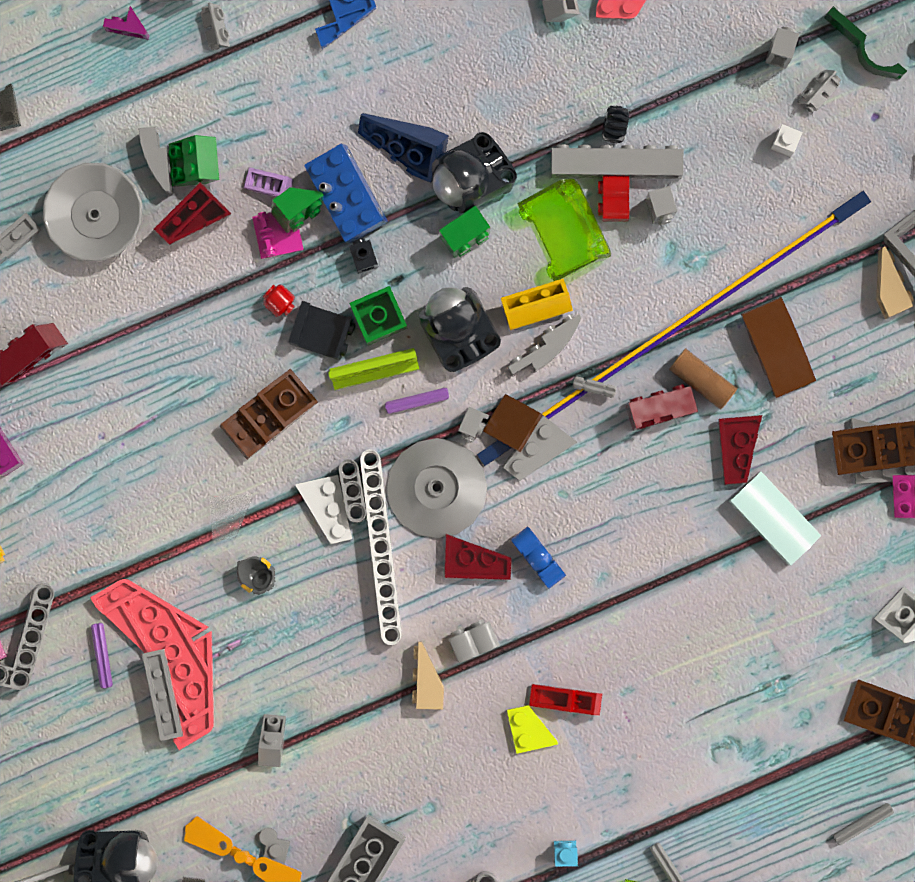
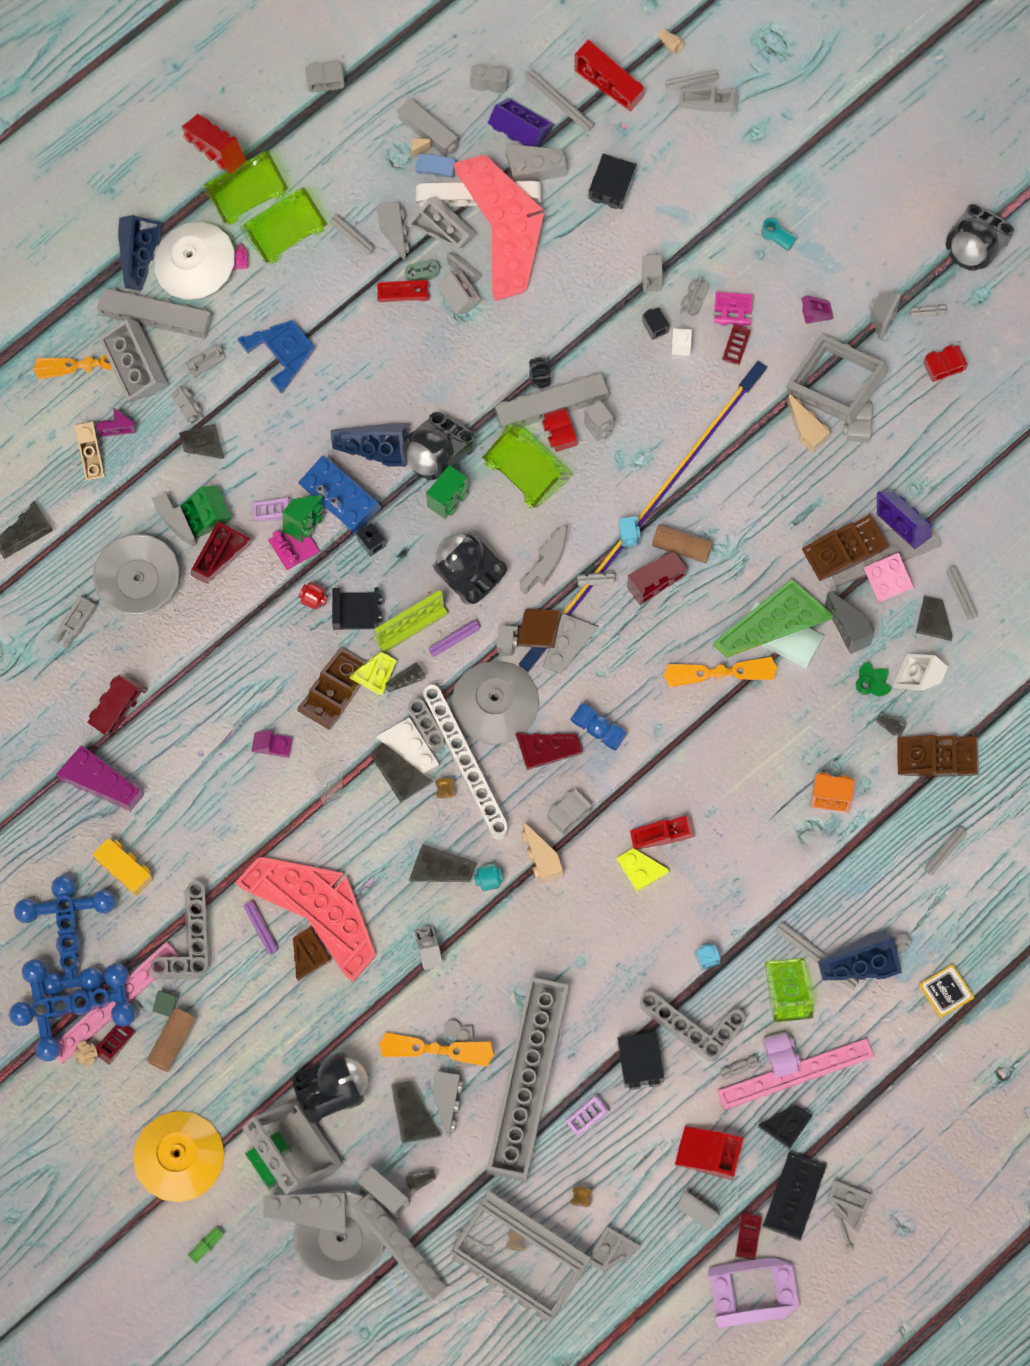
camera: 20 degrees left, 15 degrees down
(89, 43) = (89, 450): none -> tan slope
(138, 705) = (308, 954): none -> reddish brown wing
(162, 694) = (323, 937): light grey plate -> none
(180, 453) = (270, 744): none -> magenta slope
(217, 77) = (202, 441): none -> clear smoke wing
(256, 575) = (368, 817): dark grey hair -> none
(305, 535) = (400, 774): none -> clear smoke wing
(317, 412) = (375, 672): none -> neon yellow wing
(317, 655) = (441, 866): none -> clear smoke wing
(349, 569) = (445, 788): none -> pearl gold wheel
(350, 429) = (407, 677): none -> clear smoke slope
(362, 685) = (488, 877): none -> teal head
(378, 315) = (399, 580): green brick -> none
(536, 304) = (525, 529): yellow brick -> none
(649, 346) = (629, 531): none -> medium azure brick
(731, 550) = (687, 674): none -> light orange piece
(737, 446) = (729, 586): dark red wing -> none
(765, 107) = (655, 323): none -> black brick
(767, 724) = (832, 792): none -> orange brick
(778, 347) = (734, 500): reddish brown slope -> none
(779, 501) = (778, 616): none -> bright green wing
(854, 540) = (850, 623): none -> dark grey slope
(857, 663) = (892, 724): none -> clear smoke cone
(858, 38) = (709, 248): dark green piece -> none
(858, 605) = (874, 679): none -> green plate
(861, 113) = (733, 303): none -> dark pink plate
(863, 154) = (742, 331): none -> dark red slope

